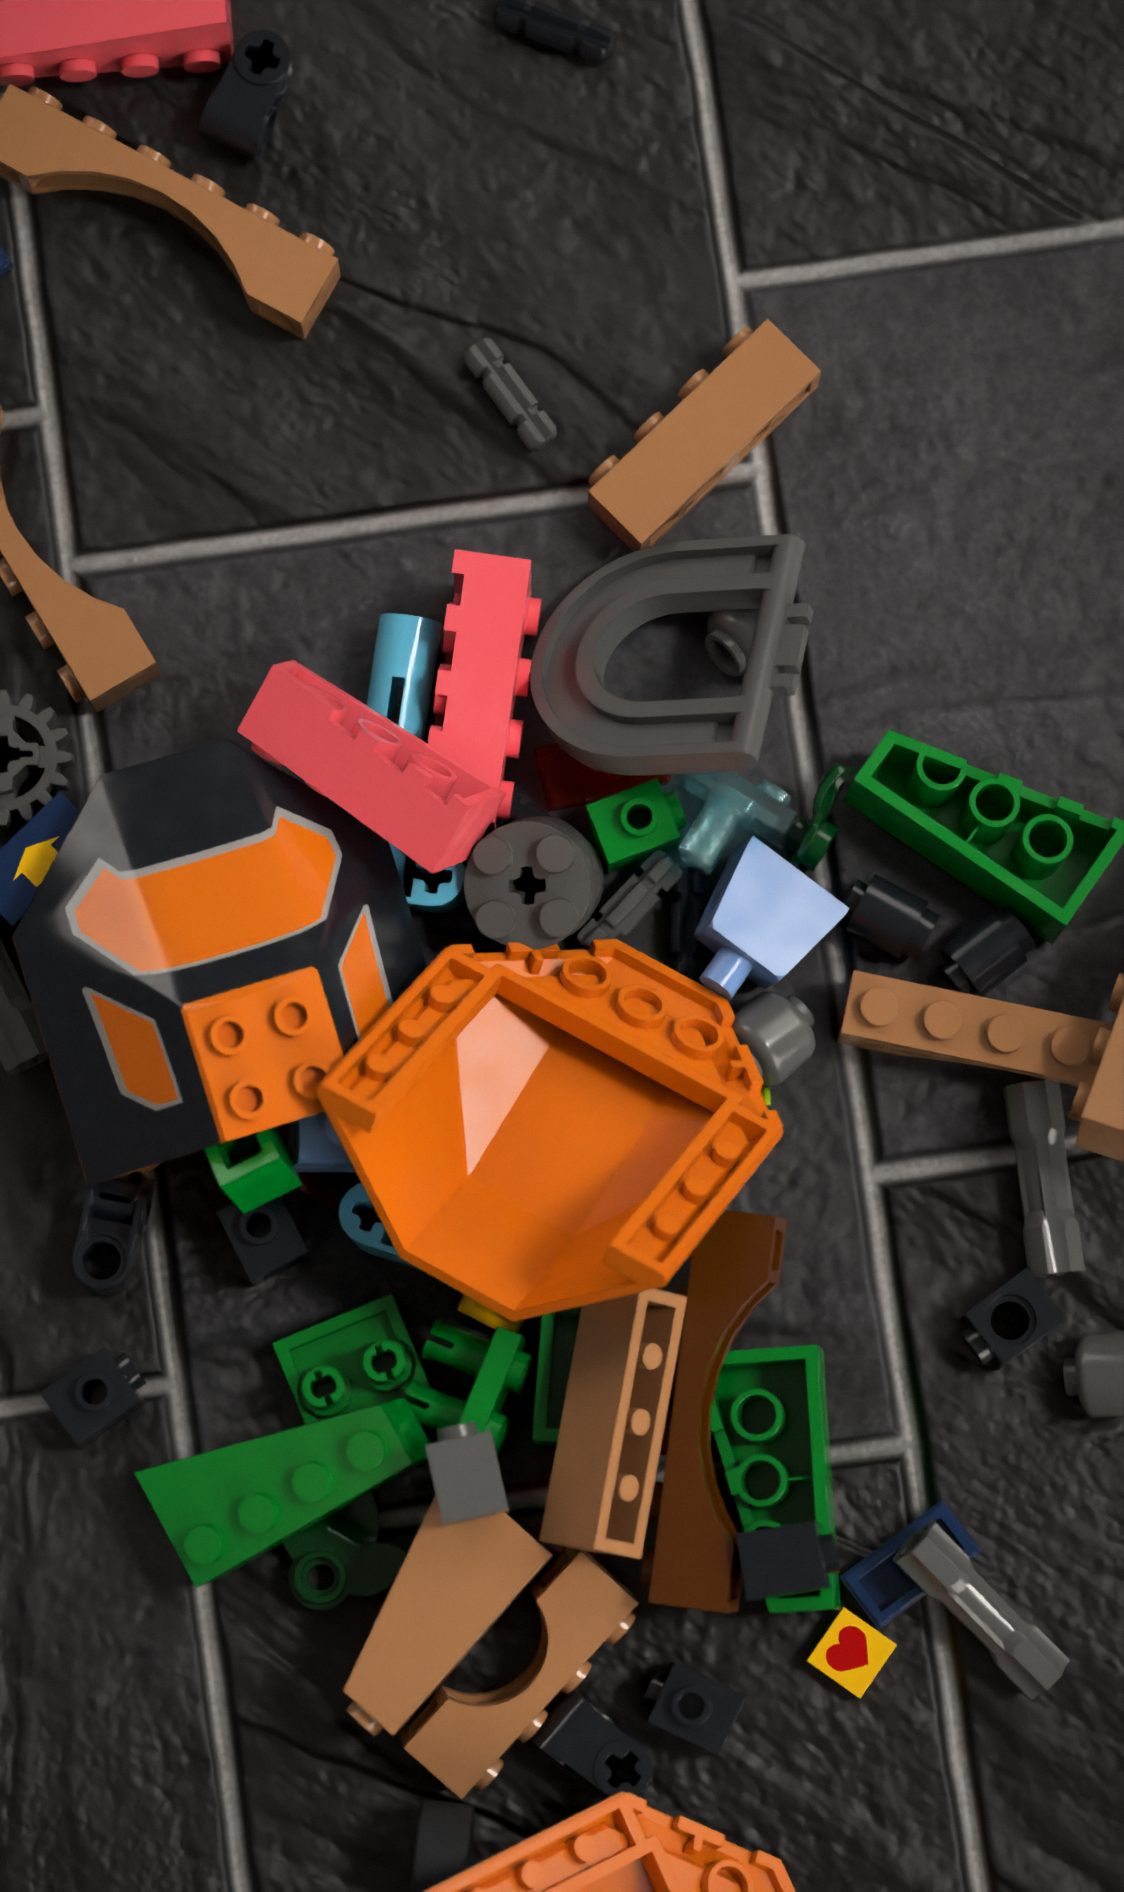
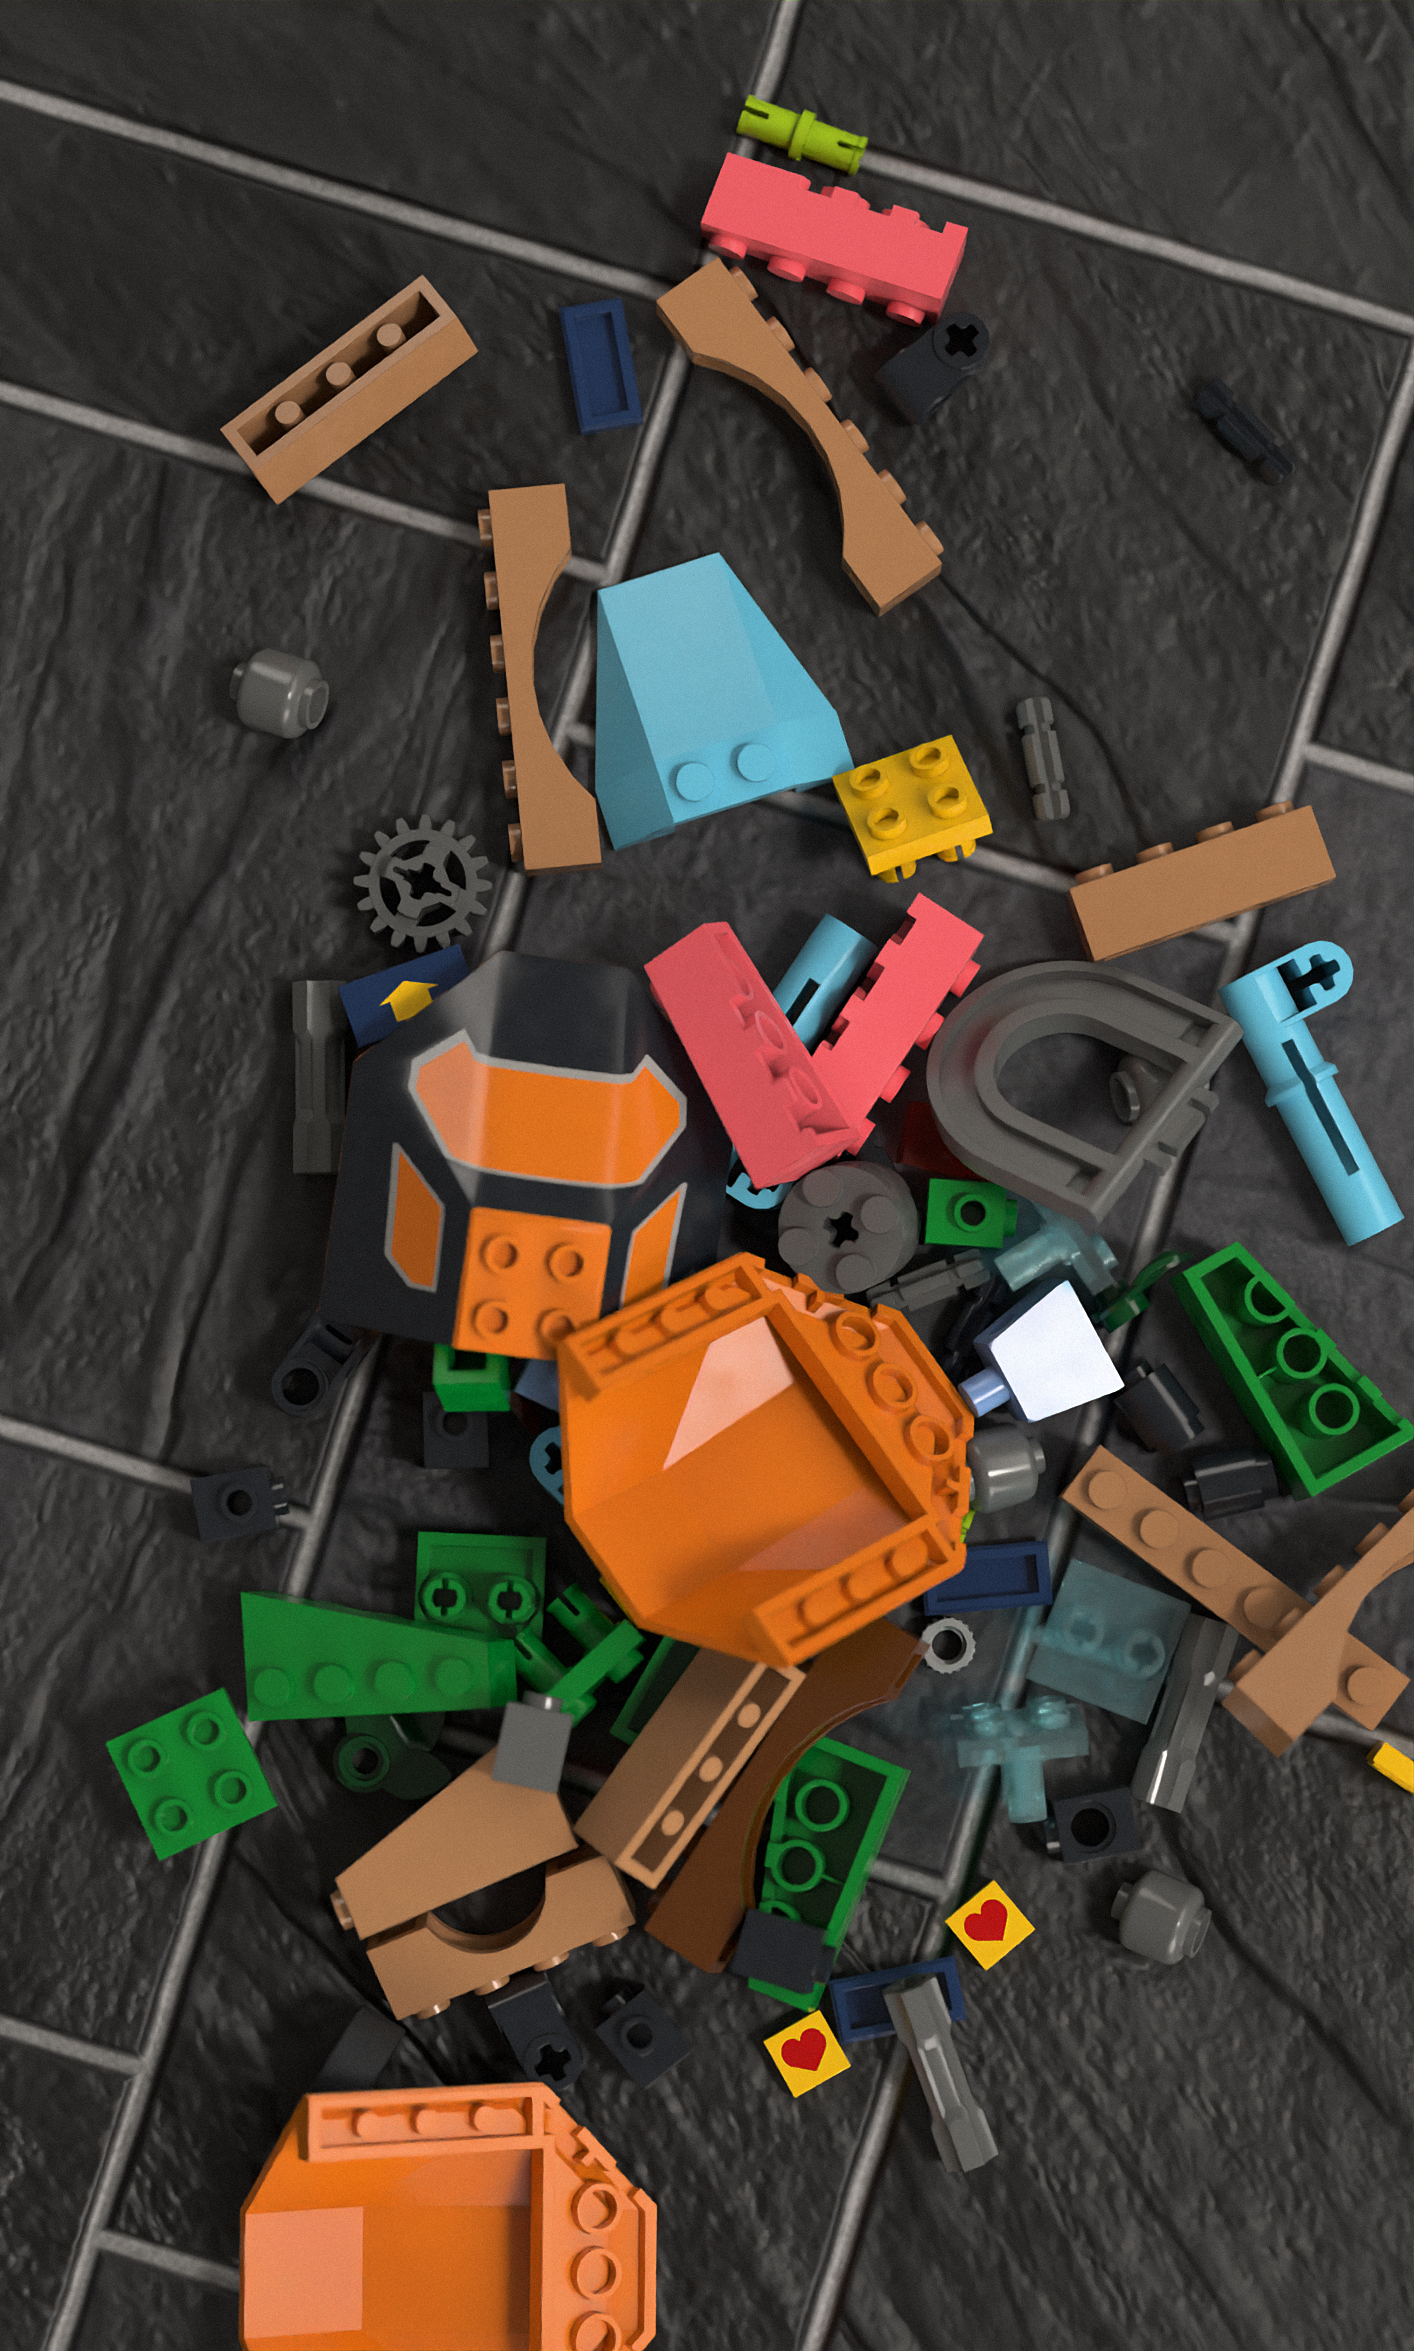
camera: 25 degrees right, 5 degrees up
(166, 1660) = (192, 1773): none -> green plate
(180, 487) = (700, 704): none -> medium azure wedge
(414, 485) = (912, 808): none -> yellow plate
(814, 1142) = (995, 1579): none -> dark blue tile
(821, 1214) = (966, 1639): none -> light grey axle
(881, 569) = (1304, 1085): none -> medium azure piece
(912, 1276) = (1020, 1744): none -> clear light blue plate
(945, 1147) = (1108, 1641): none -> clear light blue plate
(961, 1456) = (989, 1924): none -> yellow tile

